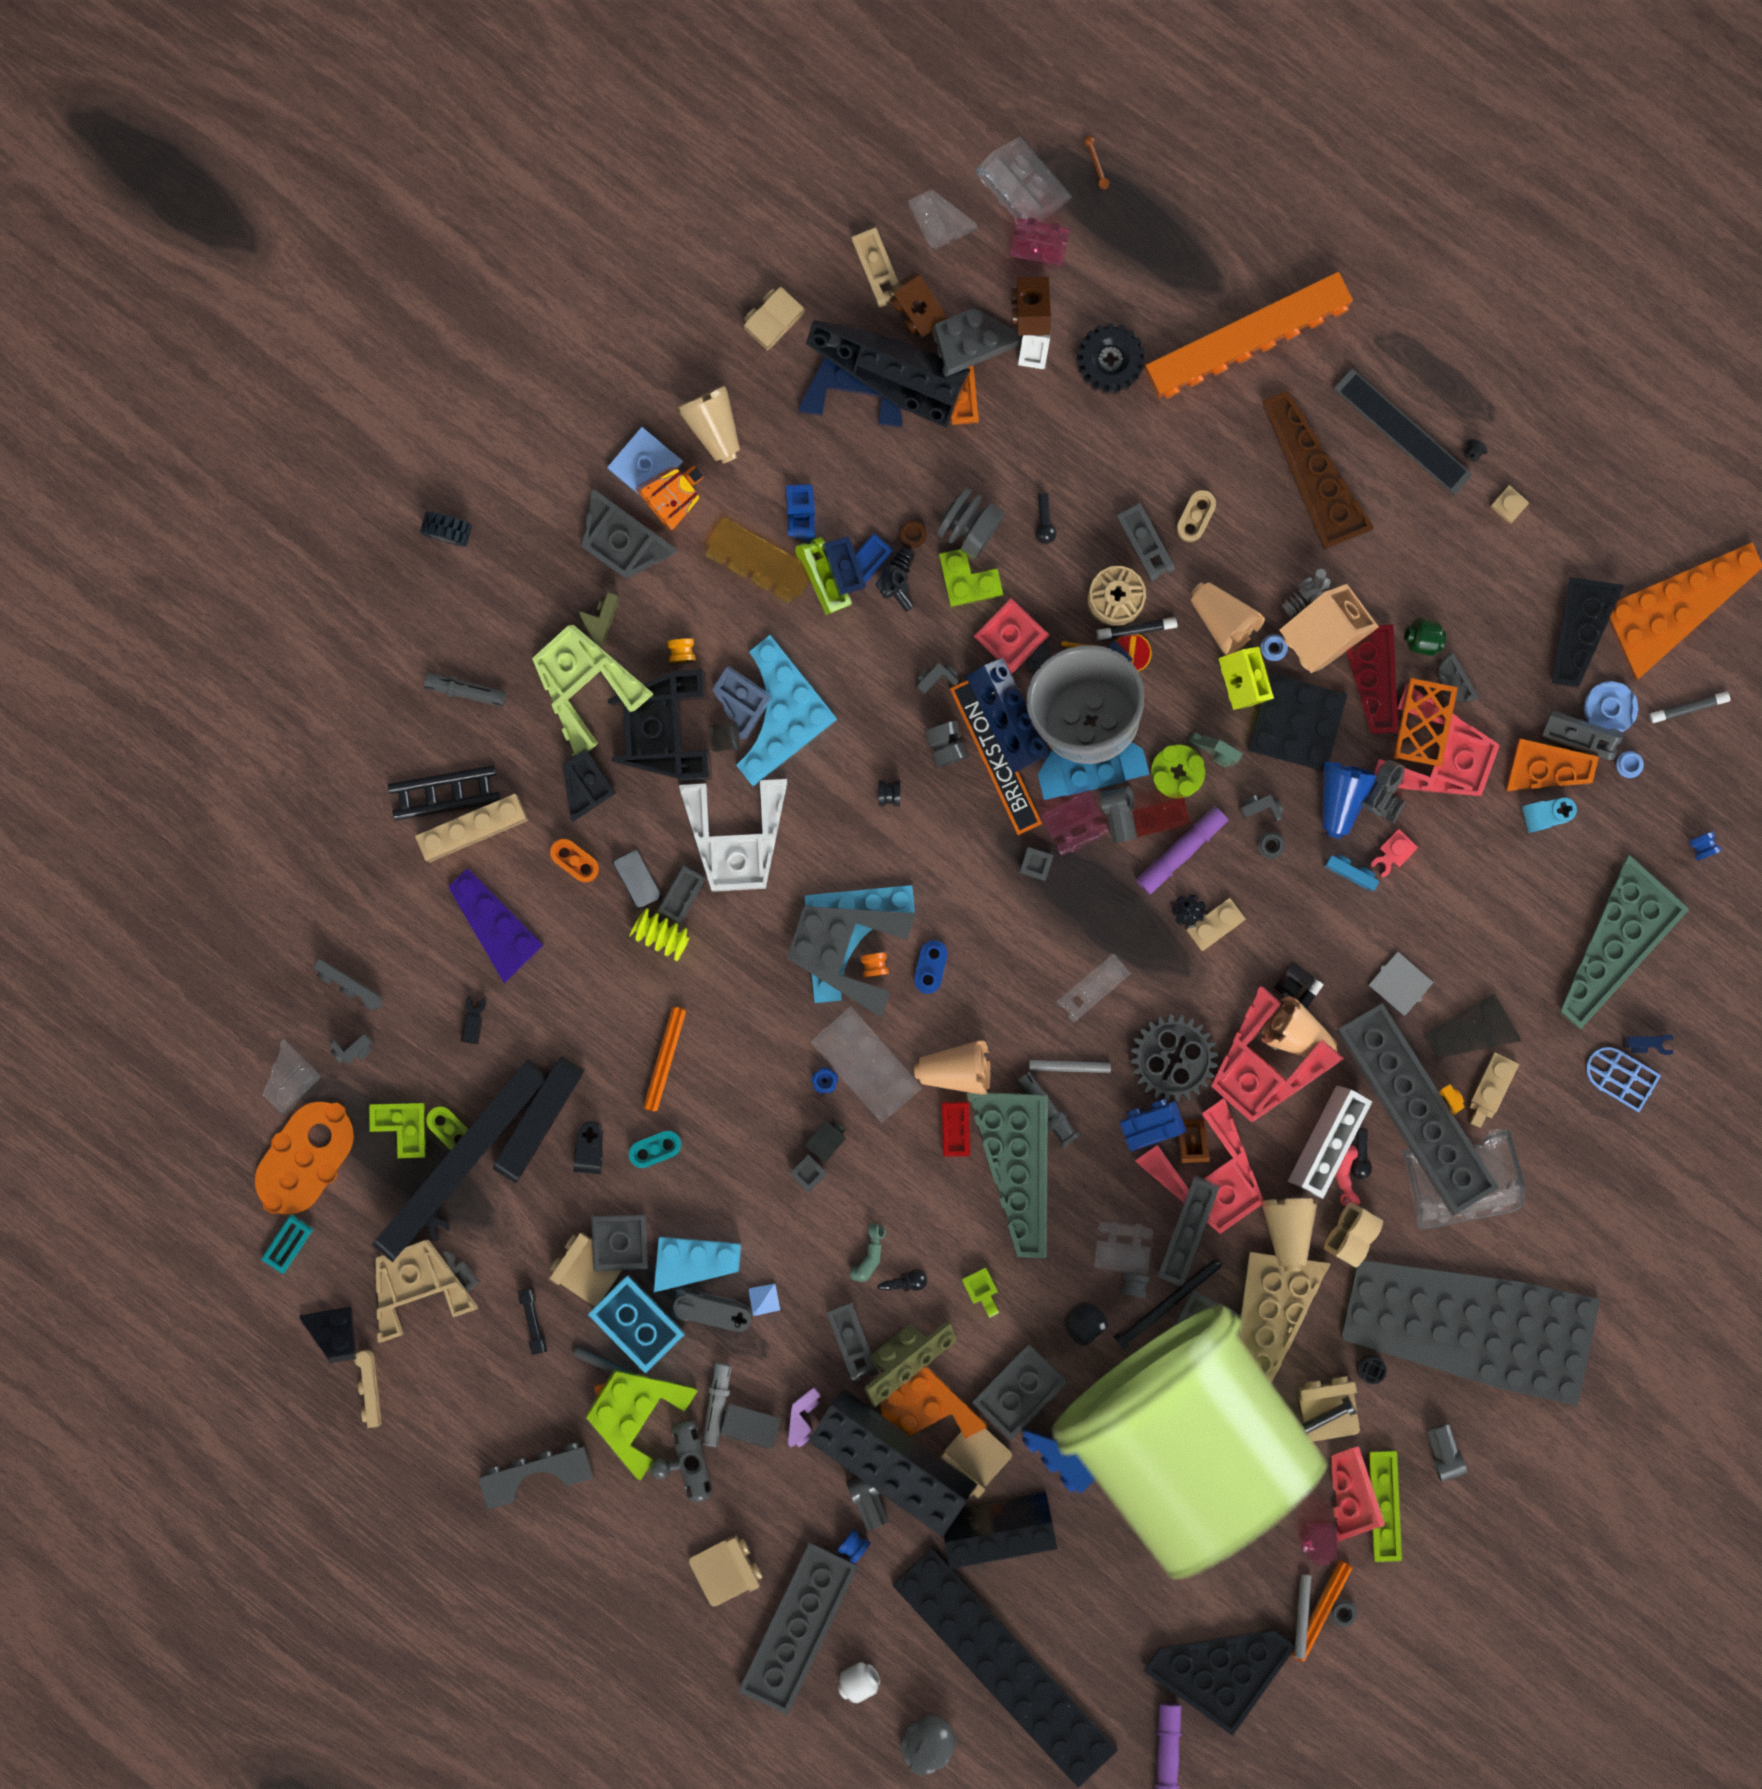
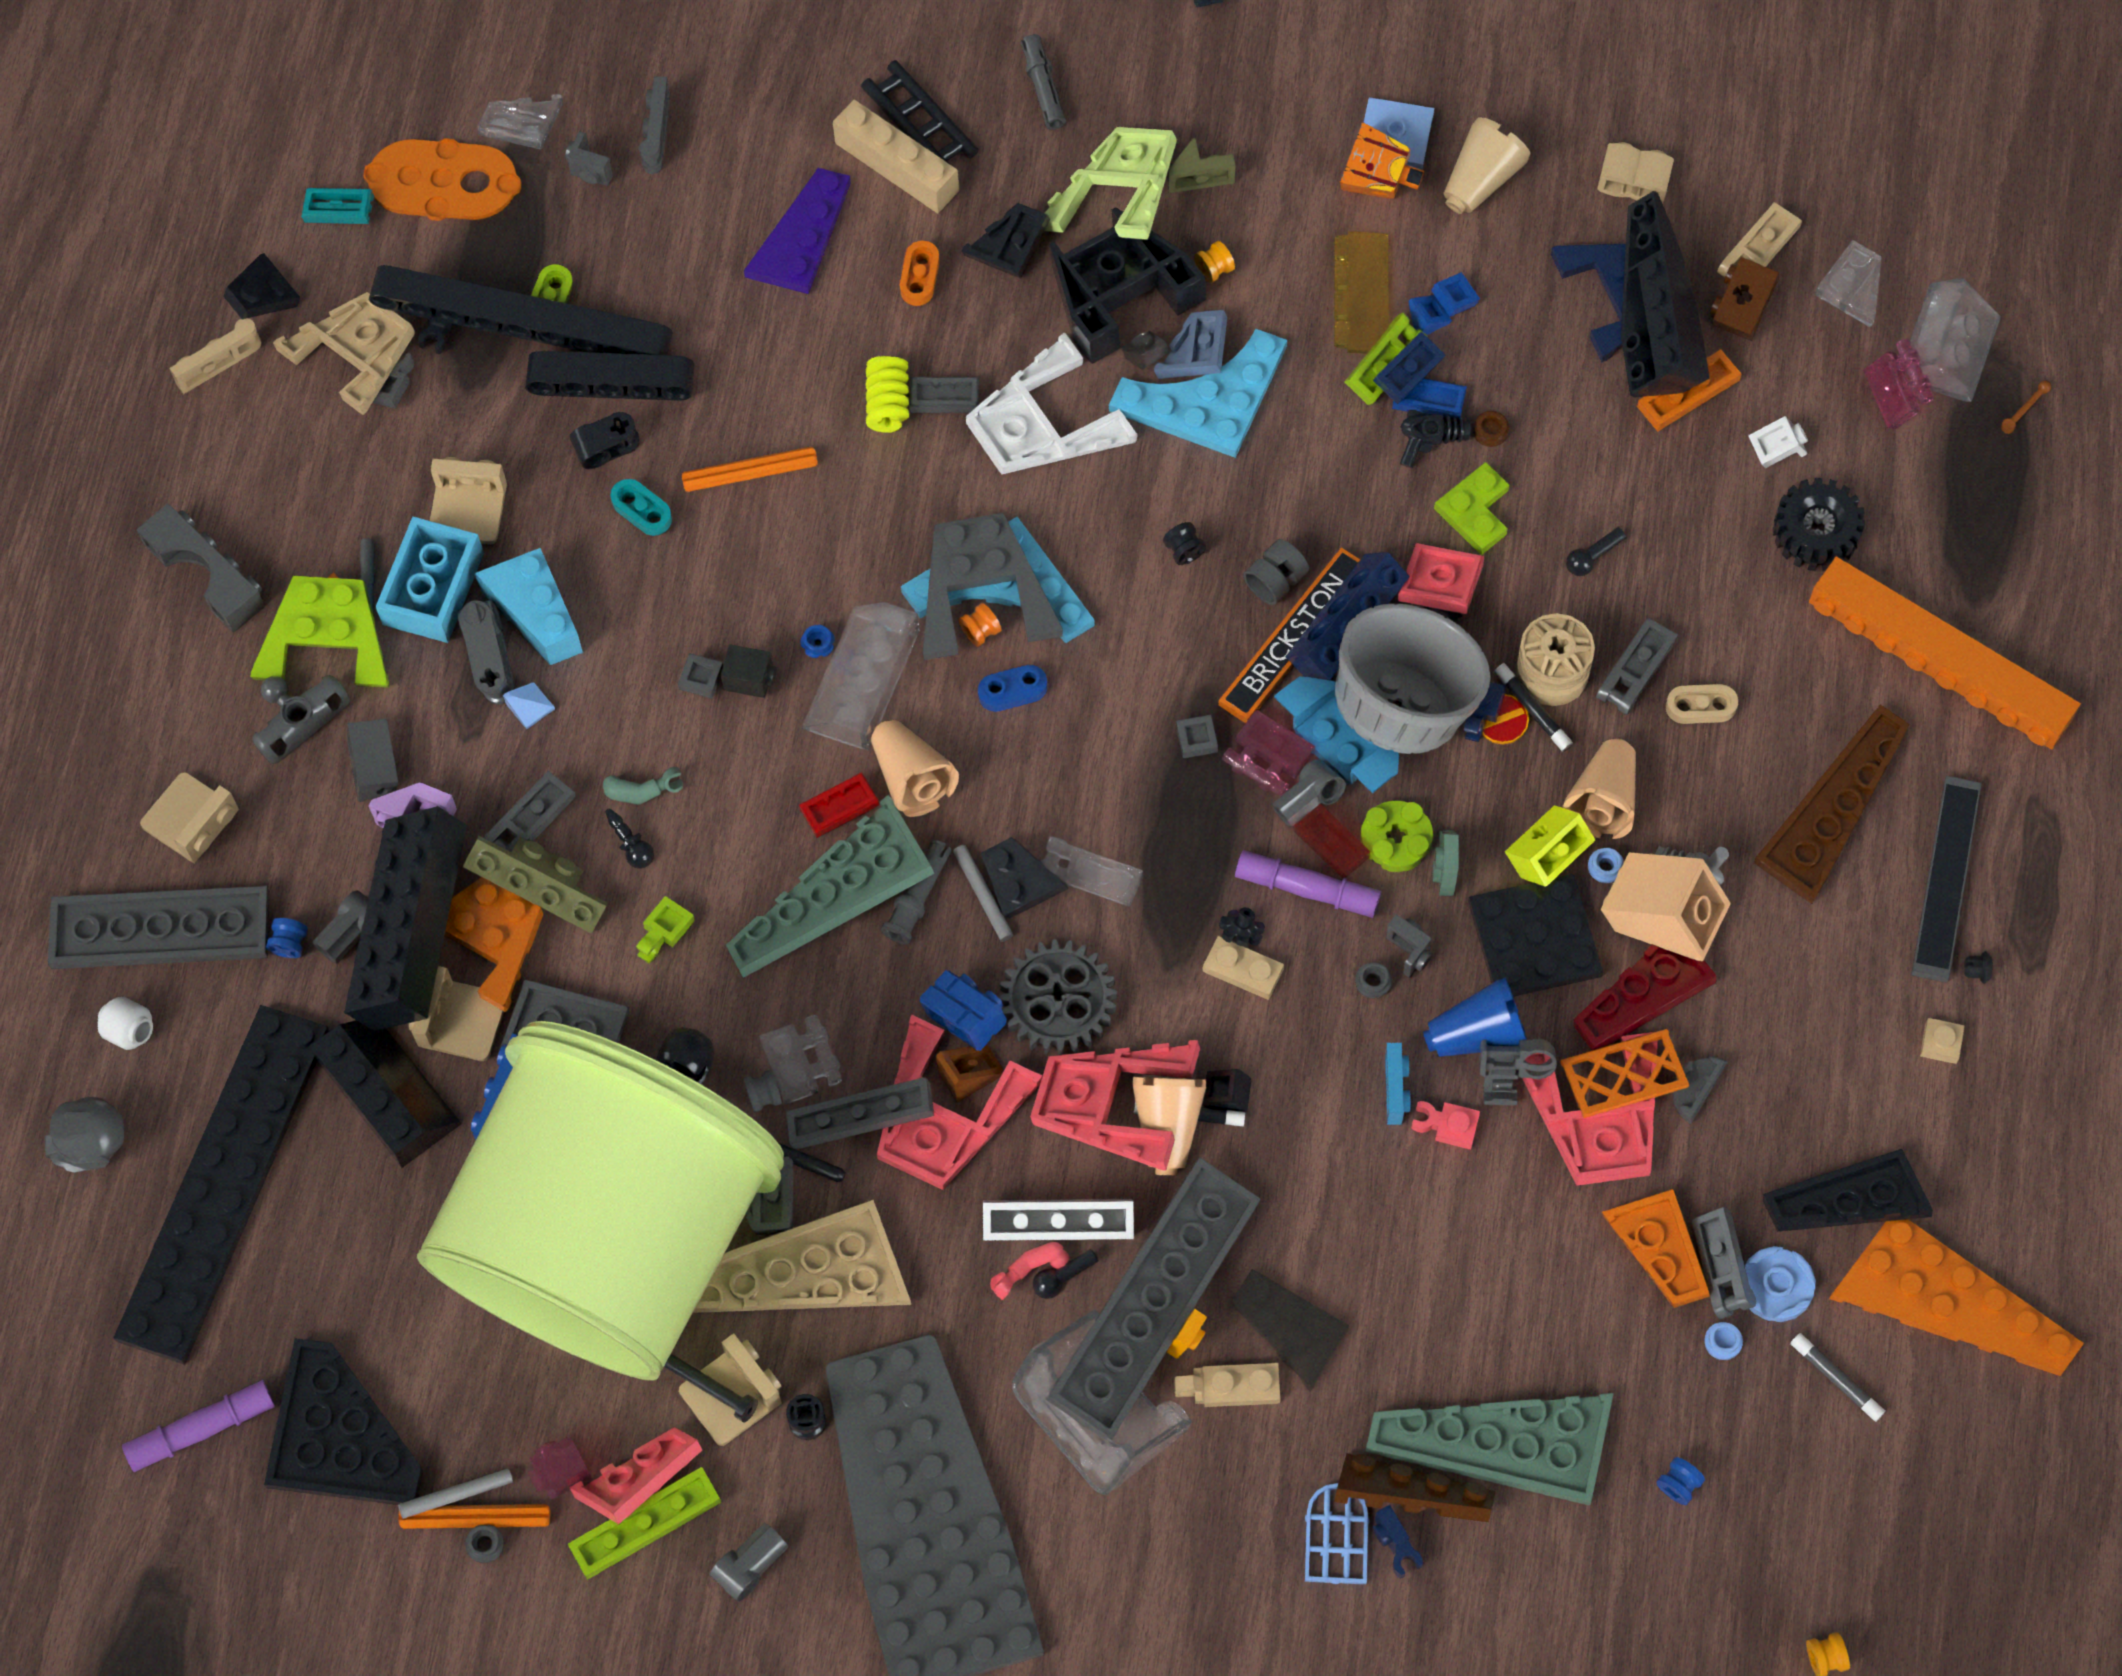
camera: 65 degrees right, 20 degrees down
(407, 1121) = (534, 252): lime plate -> none
(472, 1022) = (684, 262): black bar -> none
(537, 1343) = (402, 464): black bar -> none
(619, 1243) = (514, 521): dark grey tile -> none
(621, 539) = (1299, 148): dark grey wing -> none
(637, 879) = (934, 343): slope -> none
(715, 1411) = (393, 708): light grey pin -> none
(929, 678) = (1343, 522): dark grey bracket -> none
(970, 523) = (1539, 467): dark grey wheel -> none
(972, 339) = (1743, 368): dark grey wing -> none
(1033, 306) = (1822, 410): reddish brown brick -> none
(1074, 1038) = (1019, 877): none -> black wing
(1290, 1230) = (925, 1224): tan cone -> none
(1353, 1234) = (960, 1307): tan brick -> none
(1400, 983) = (1297, 1214): light grey piece -> none
(1425, 637) = (1724, 1021): dark green head -> none
(1544, 814) = (1600, 1270): medium azure piece -> none
(1614, 1027) = (1412, 1489): none -> reddish brown wing

